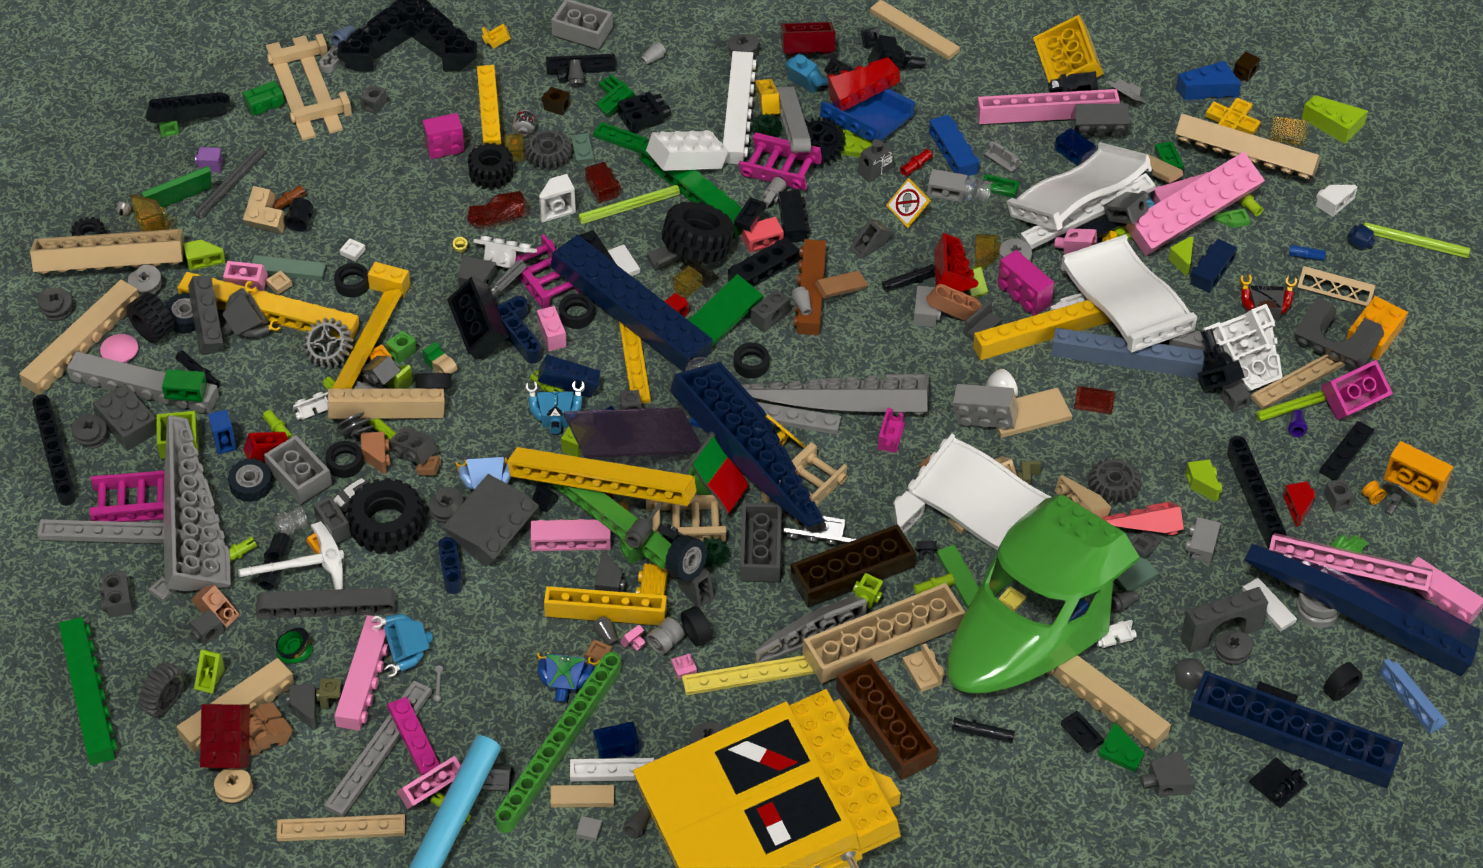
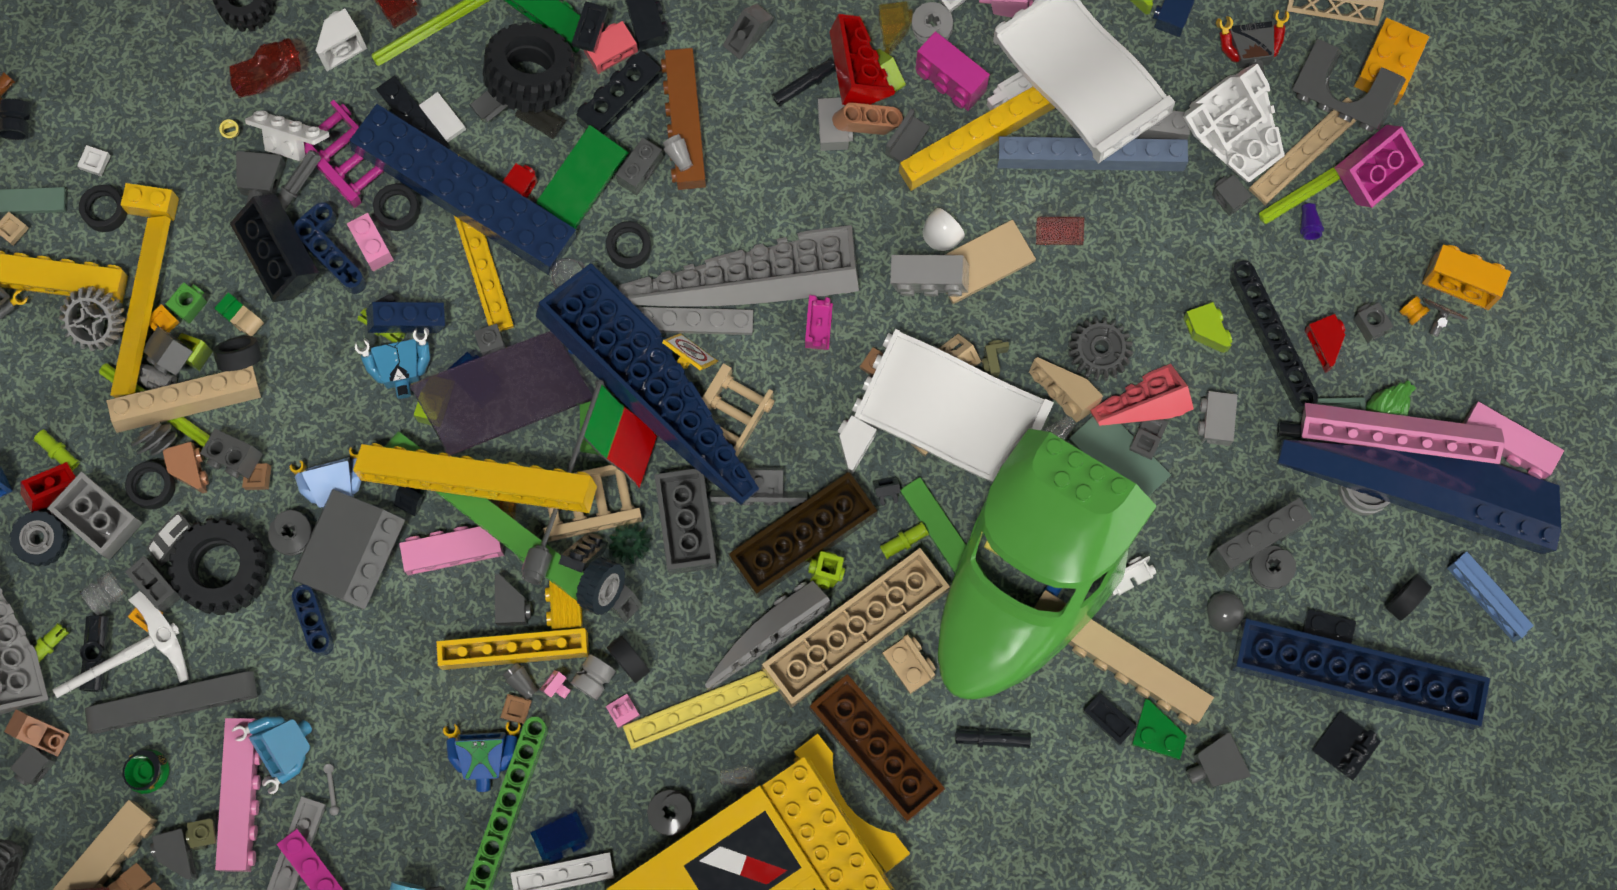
camera: 10 degrees left, 25 degrees up
(209, 671) = (49, 830): lime slope -> none
(304, 407) = (85, 416): white hinge -> none
(687, 282) = (528, 138): clear yellow brick -> none
(841, 284) = (722, 111): medium nougat tile -> none
(1218, 364) = (1208, 167): black brick -> none
(1276, 611) = (1298, 485): white tile -> none
(1346, 451) = (1374, 251): black plate -> none

